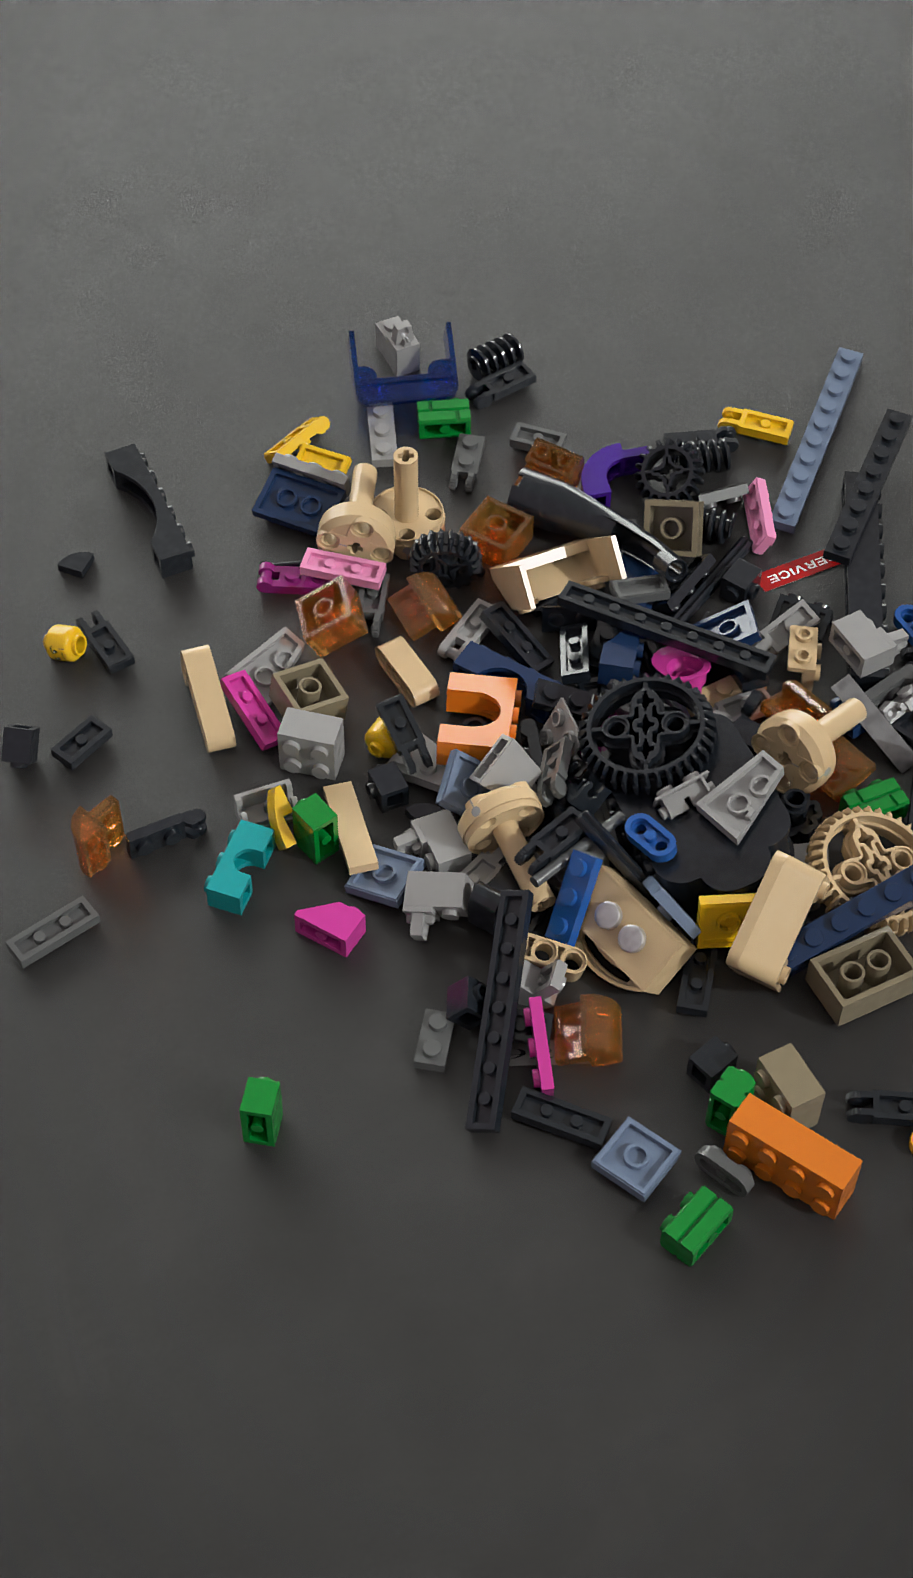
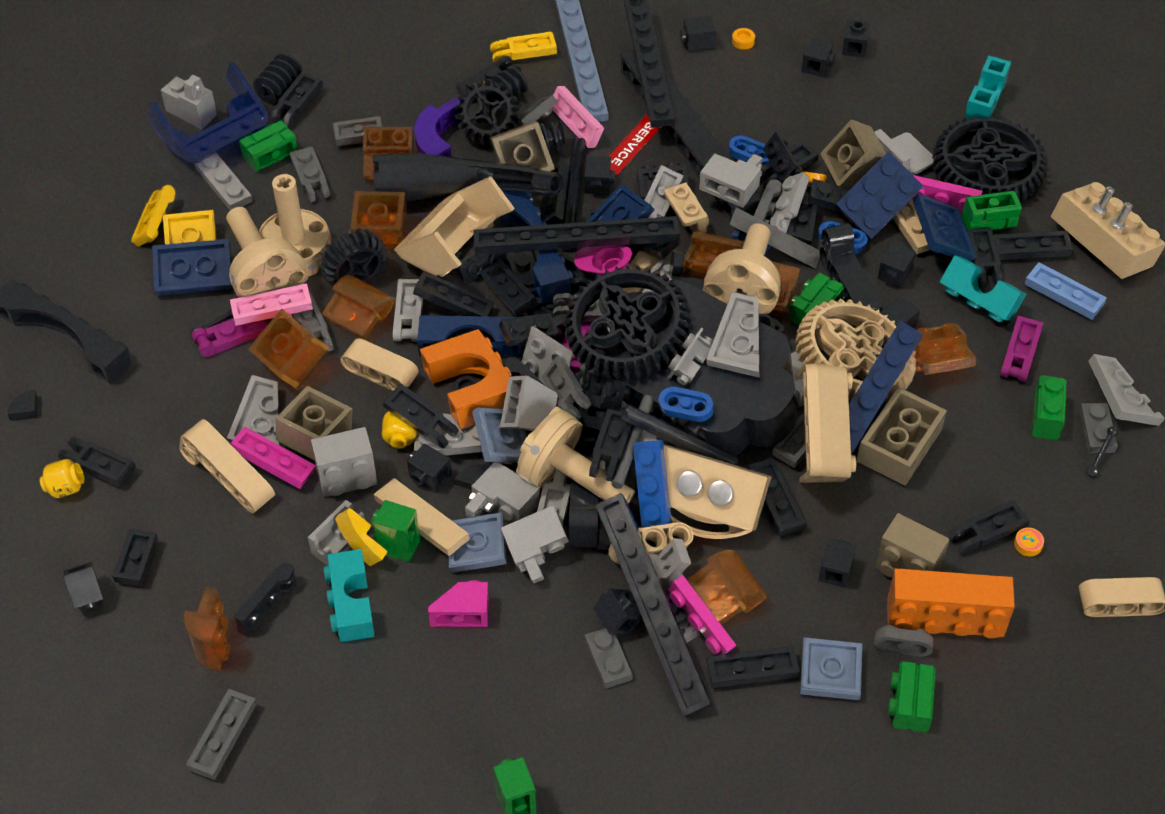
camera: 30 degrees left, 0 degrees up
(312, 471) = (189, 234): light grey plate -> none
(641, 589) = (531, 212): dark grey tile -> none
(670, 908) = (733, 452): sand blue plate -> none
(721, 918) = (781, 442): yellow plate -> none
(727, 1097) = (876, 584): green brick -> none

